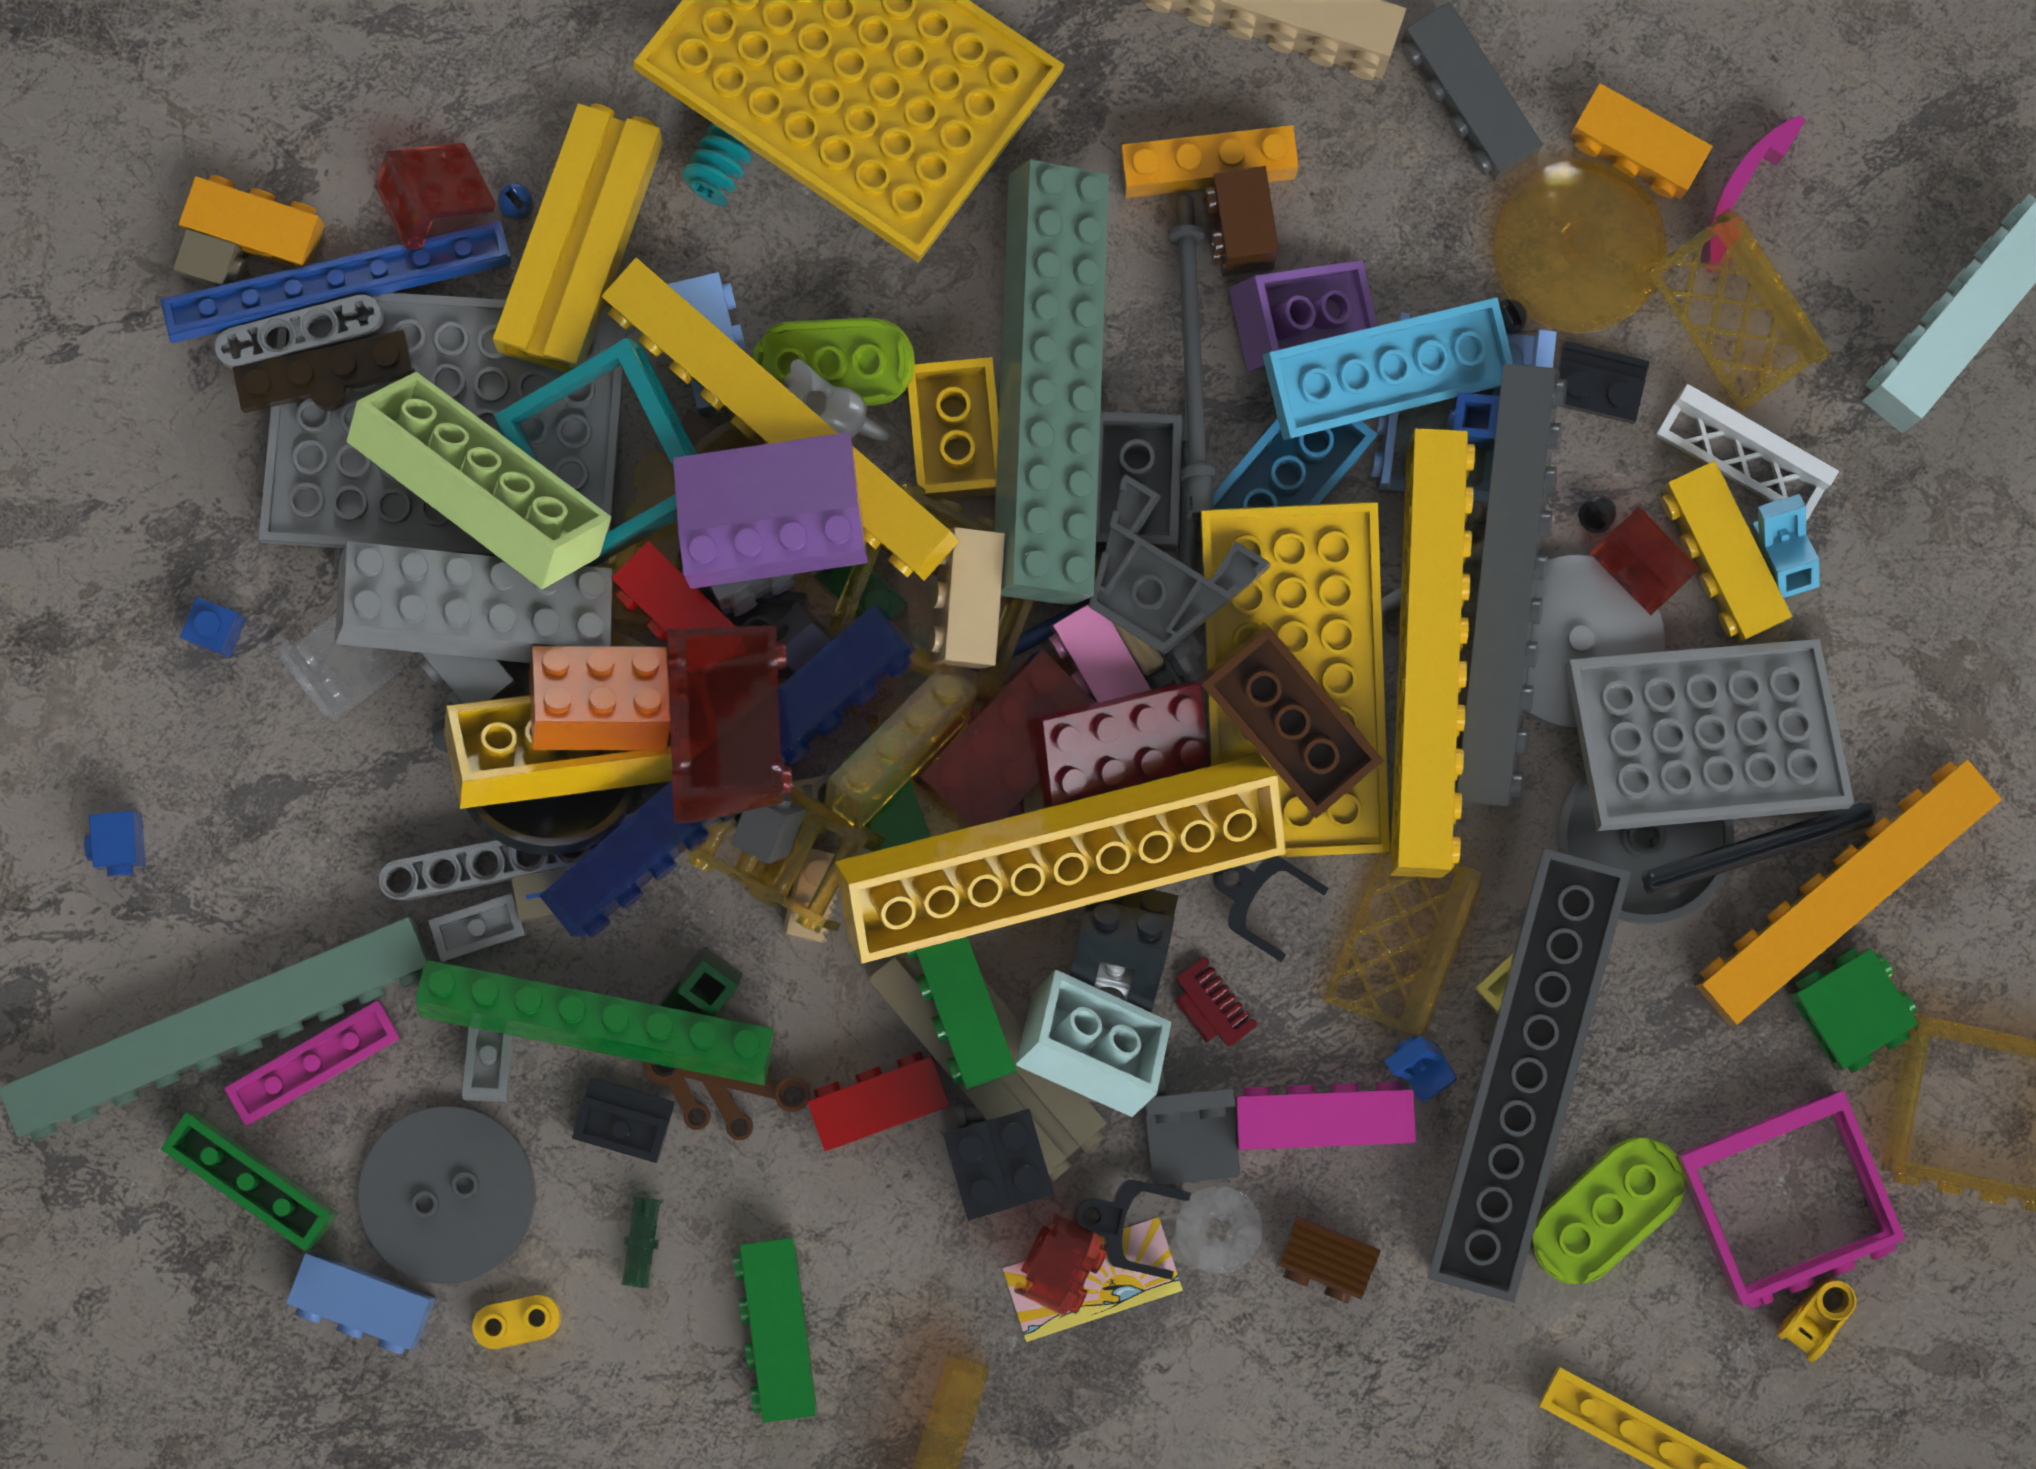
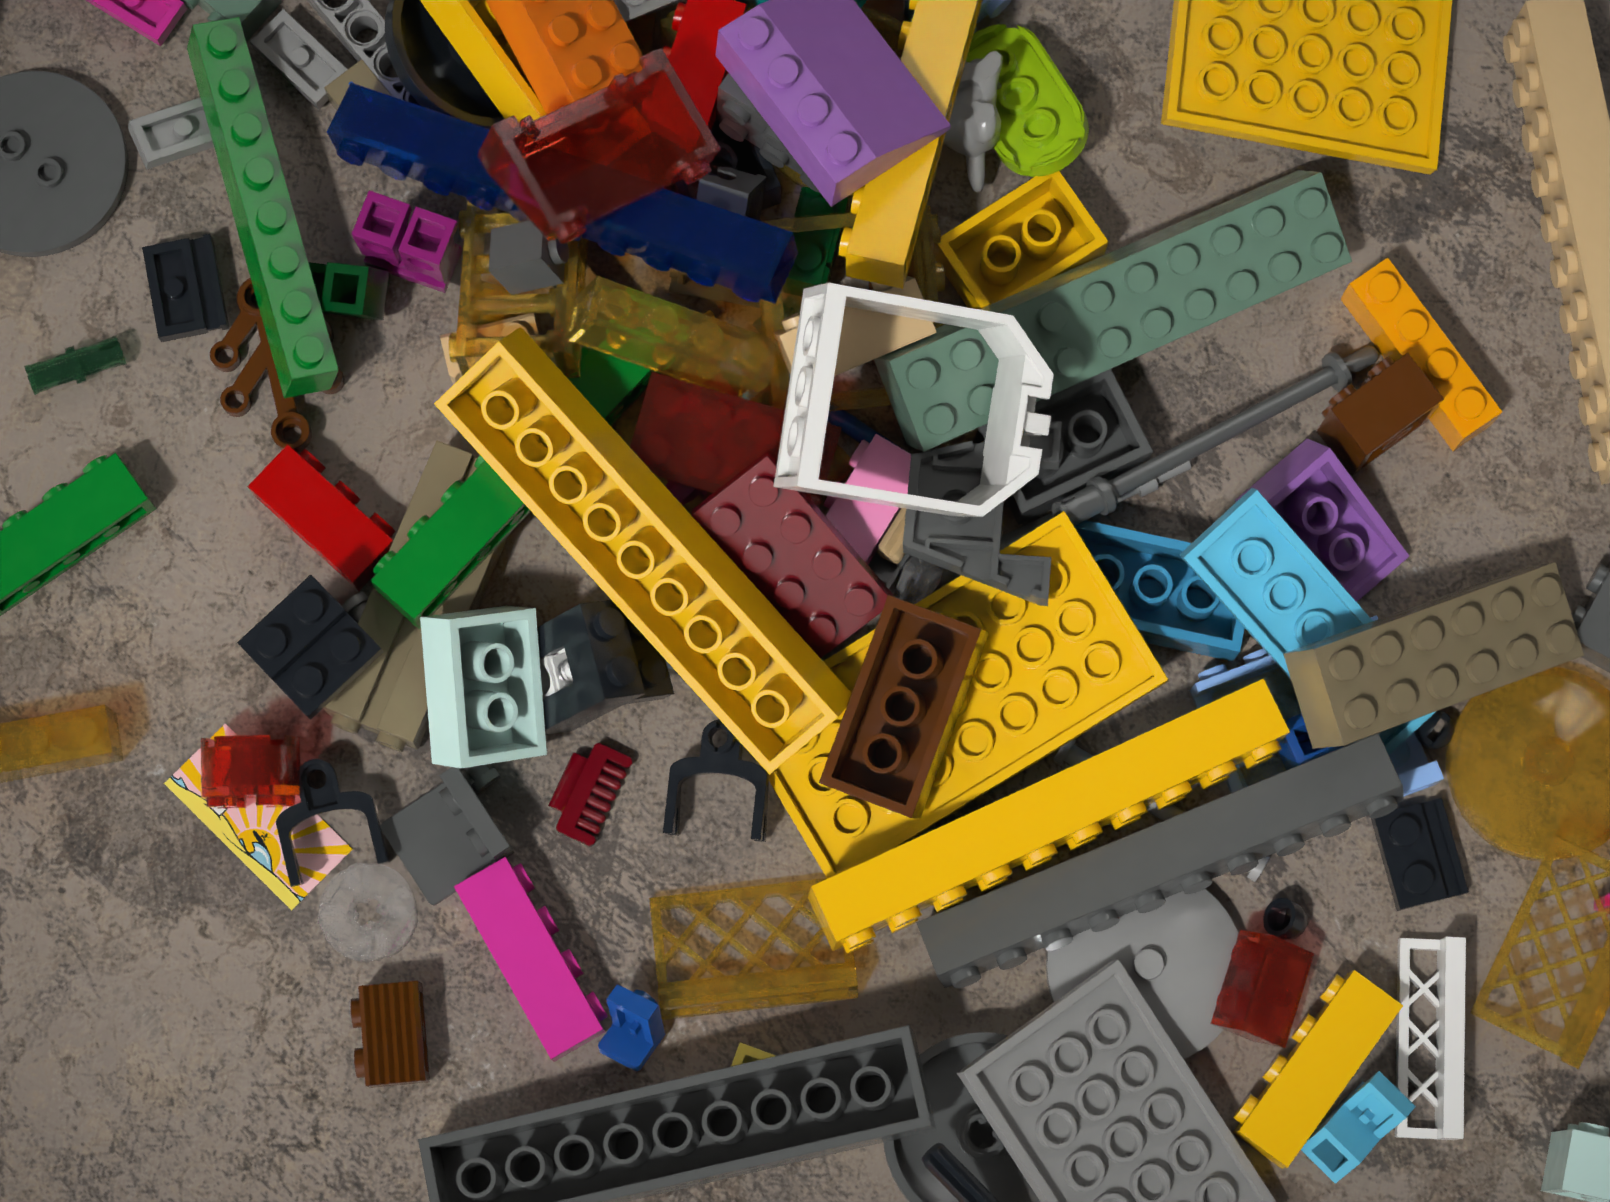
camera: 65 degrees right, 5 degrees down
(689, 927) = (412, 251): none -> magenta hips
(1020, 658) = (1011, 420): none -> white container
(1462, 287) = (1433, 655): none -> dark tan brick

